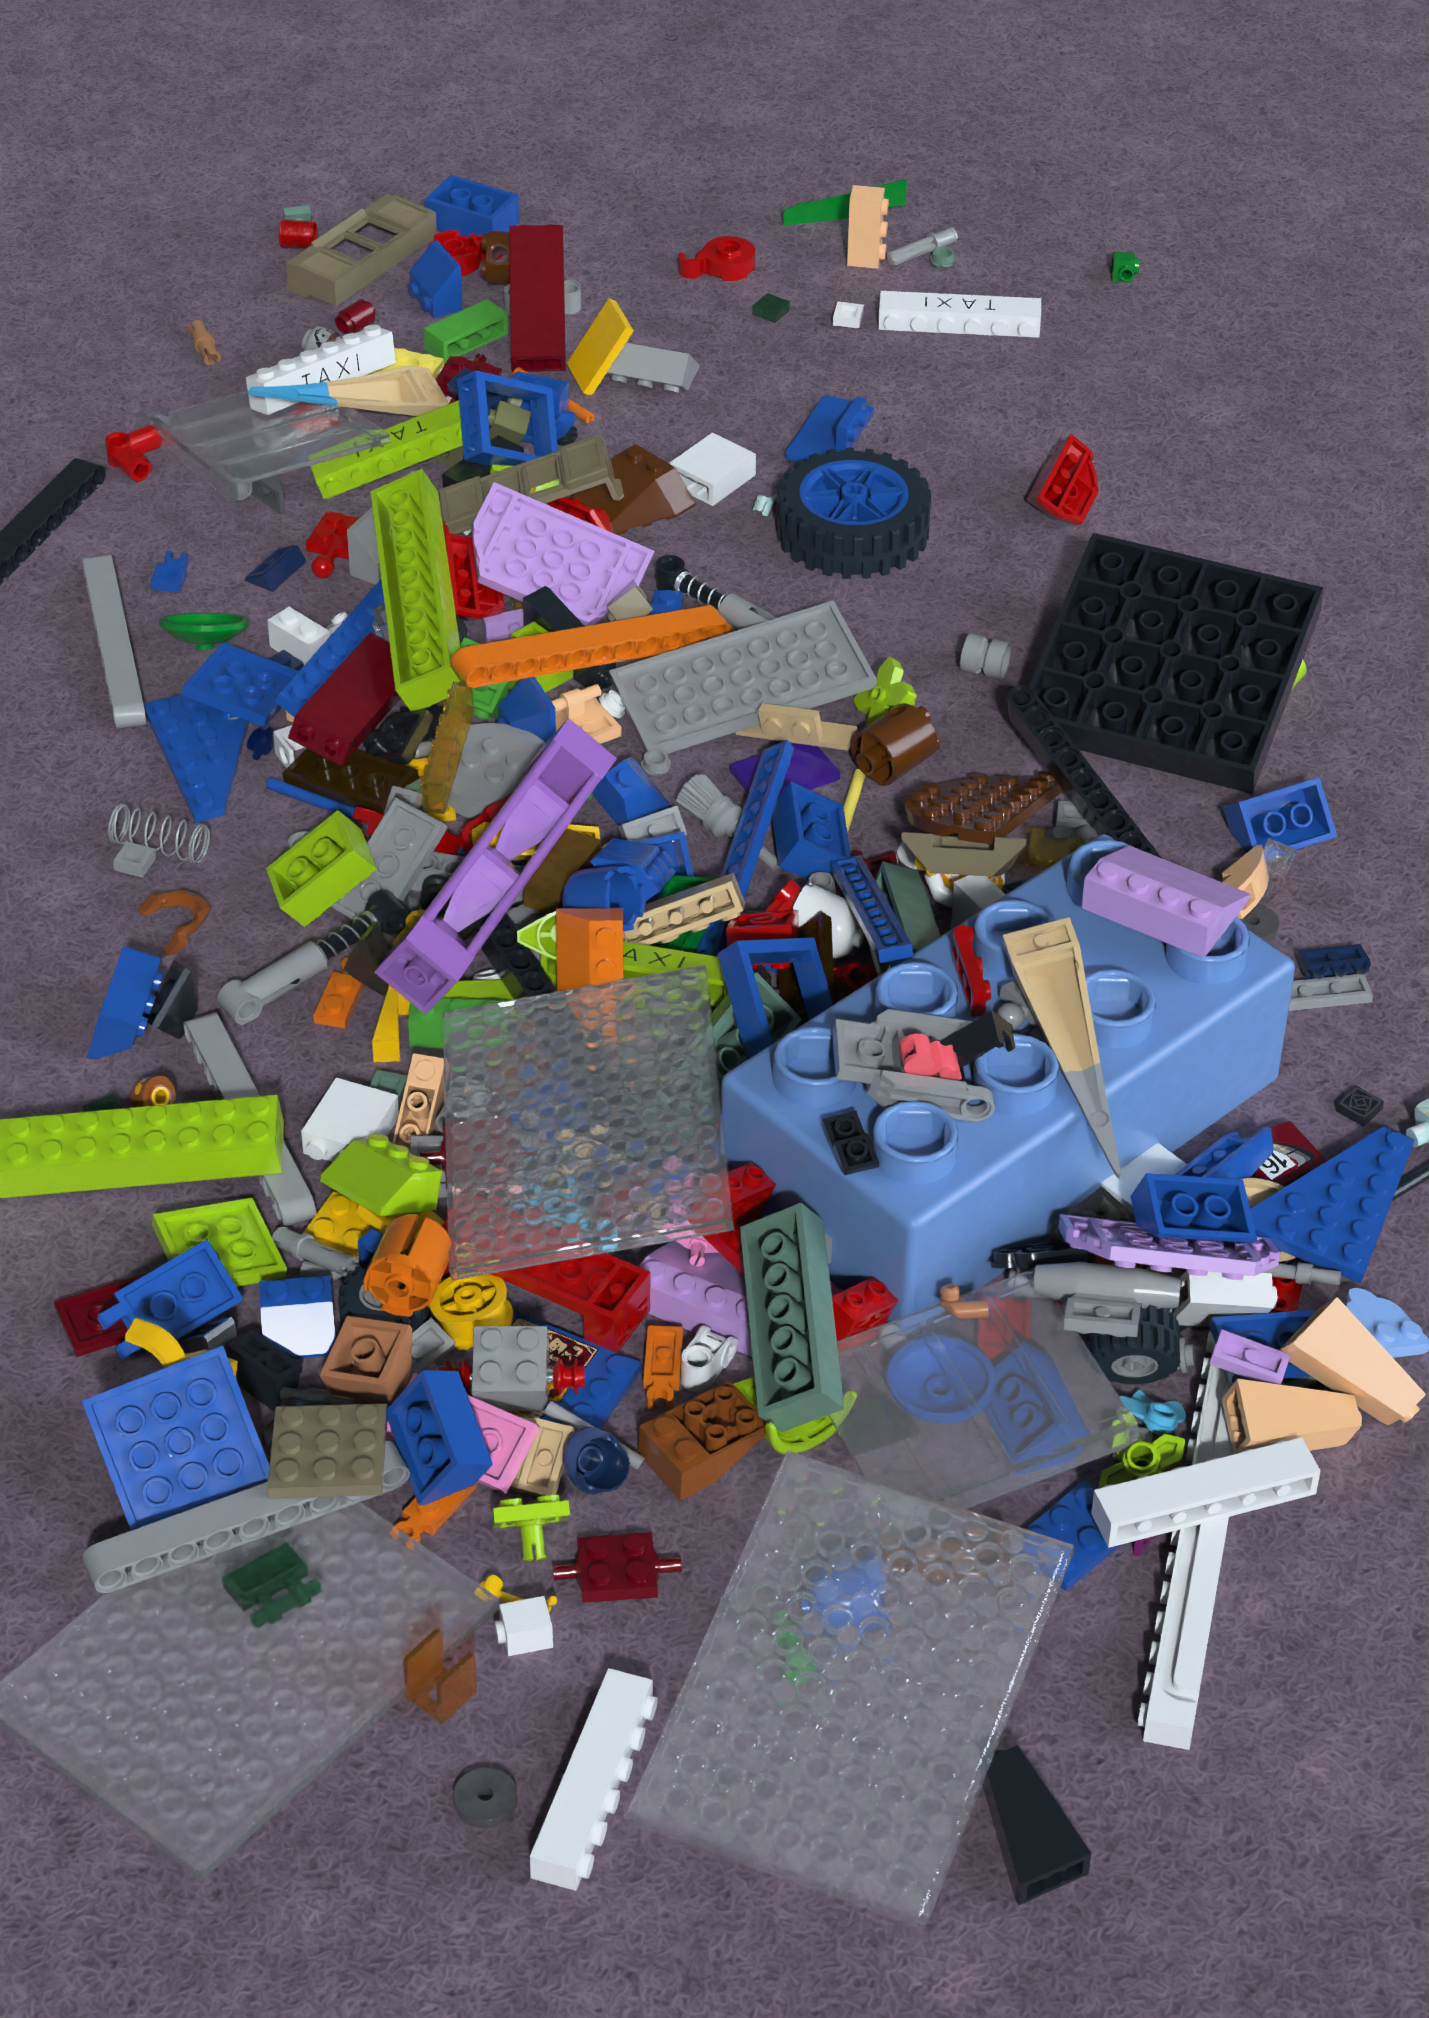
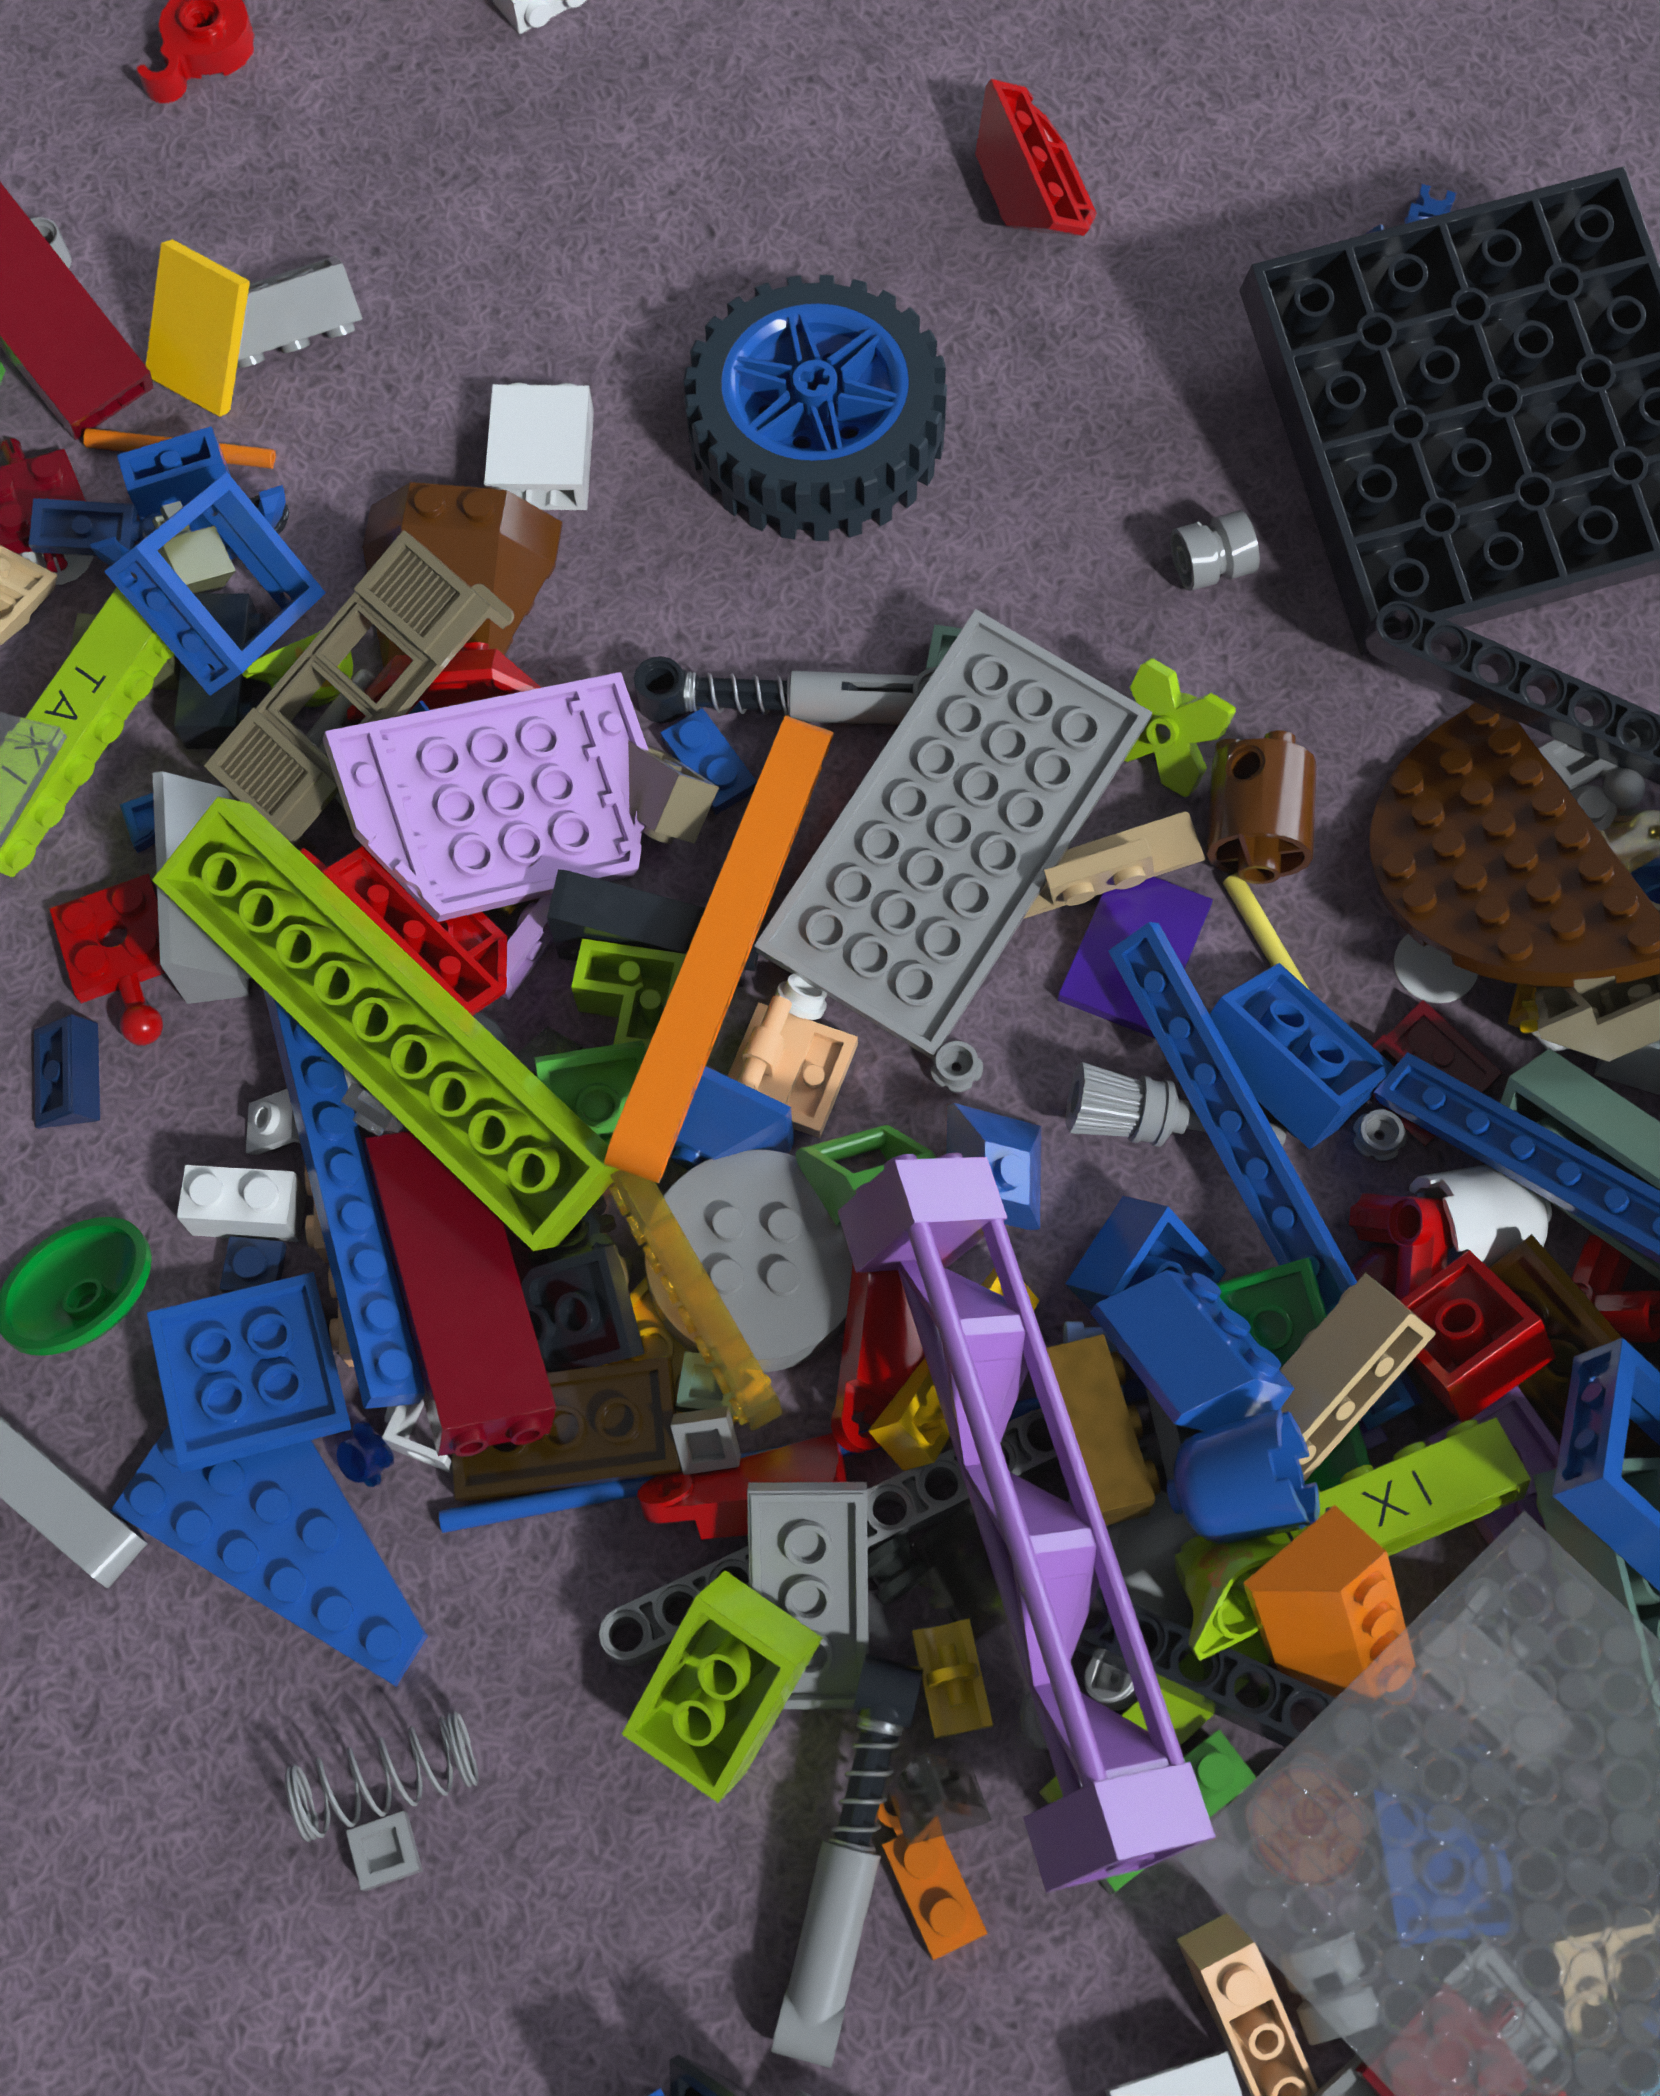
camera: 35 degrees left, 25 degrees up
(183, 899) = (577, 1877): dark orange helmet -> none
(386, 1036) = (1081, 1915): yellow slope -> none
(390, 1083) = (1171, 2022): sand green plate -> none
(654, 825) = (1074, 1204): light grey plate -> none
(764, 504) = (664, 459): light aqua hand -> none
(771, 307) = (347, 88): clear green plate -> none
(831, 425) = (633, 268): blue bracket -> none
(848, 315) = (464, 35): white plate -> none

